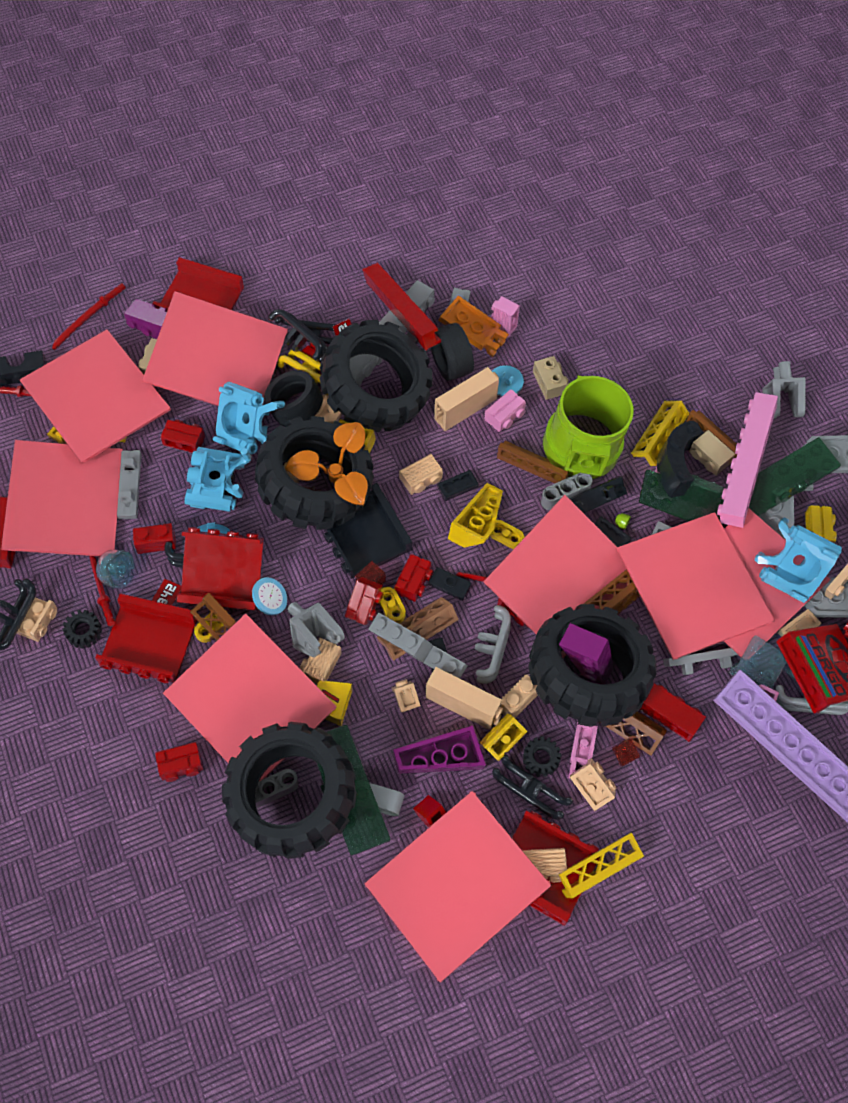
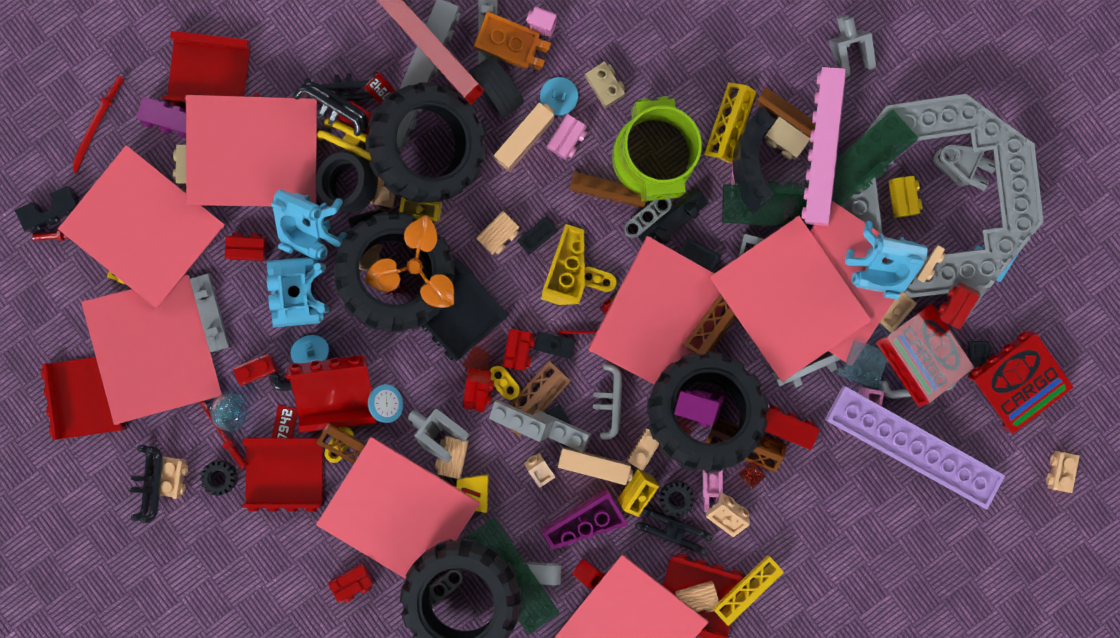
camera: 10 degrees left, 25 degrees up
(622, 520) = (708, 236): lime hinge -> none

